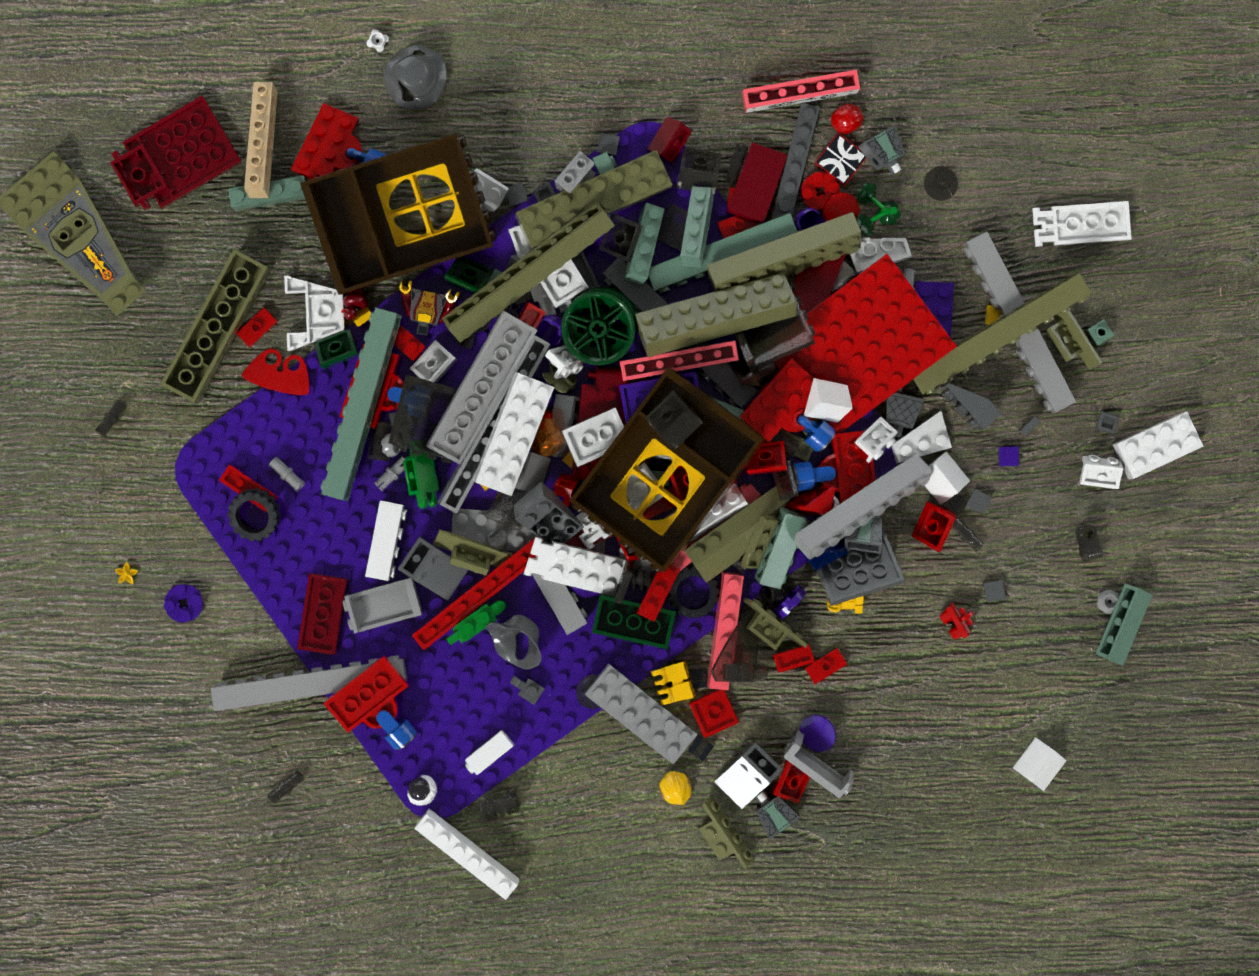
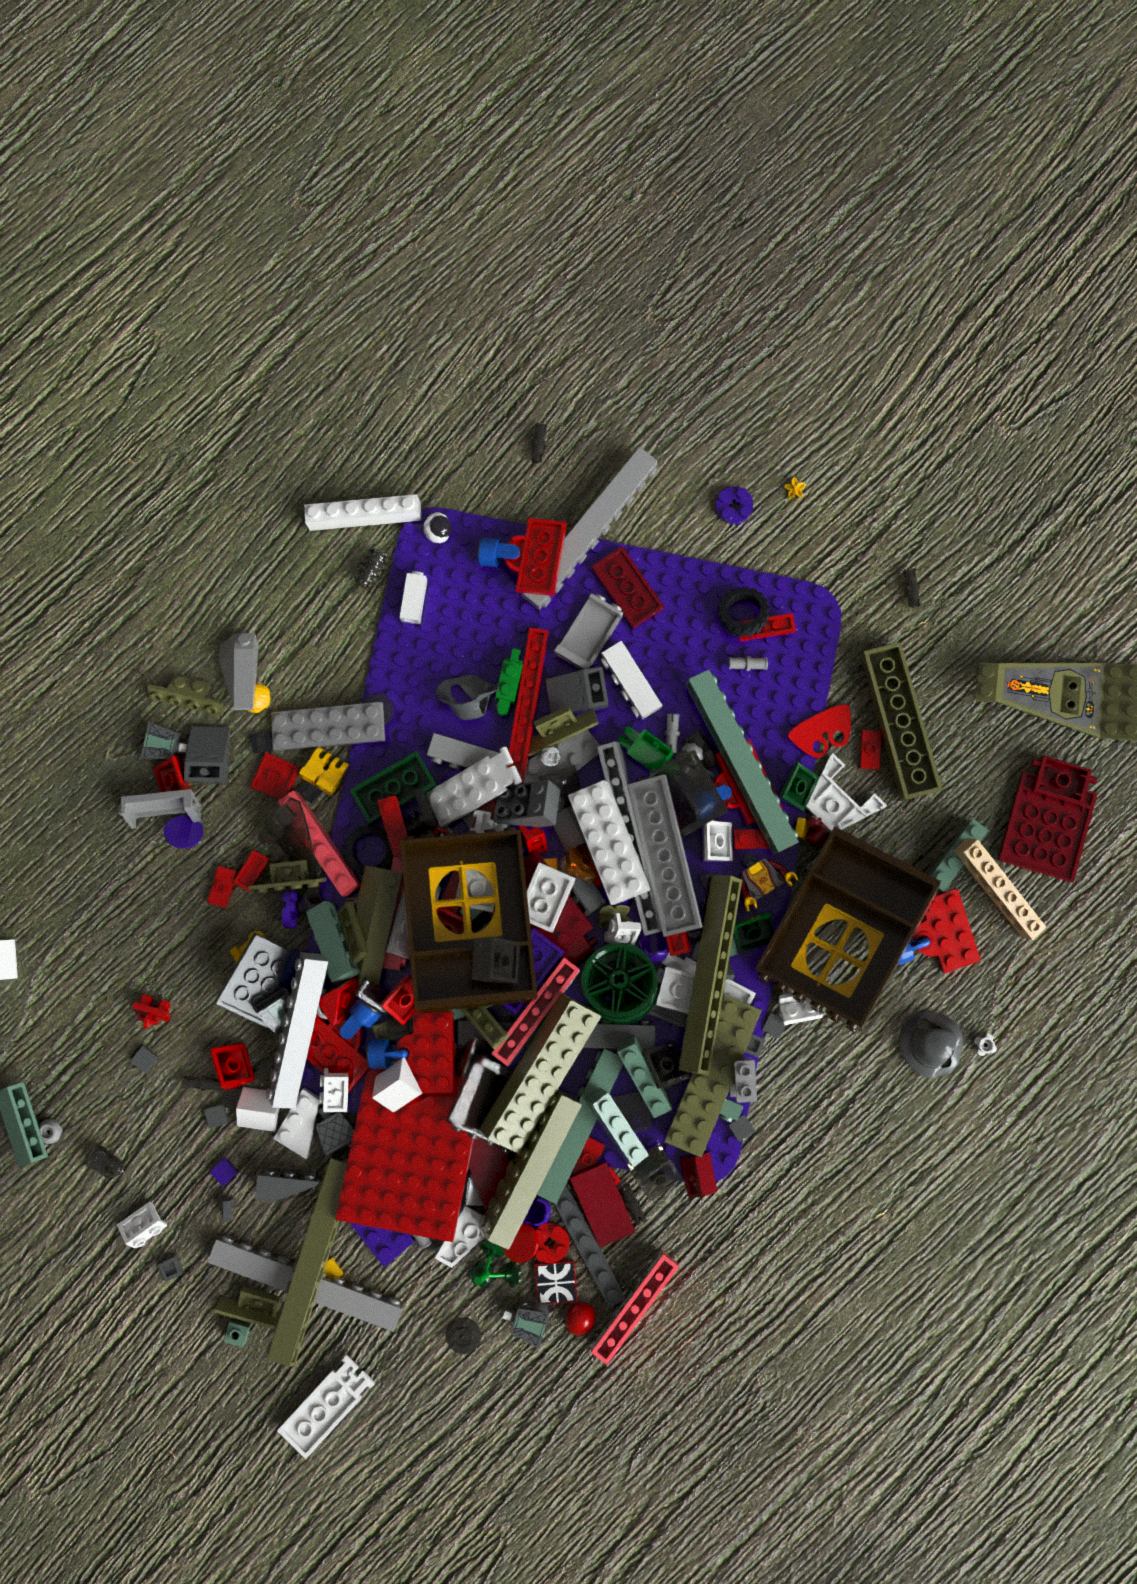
camera: 140 degrees right, 5 degrees down
(529, 690) = (425, 669): dark grey plate -> none
(666, 819) = (239, 667): none -> light grey wedge
(723, 383) = (486, 1025): none -> olive tile
(1157, 445) = (114, 1287): white brick -> none

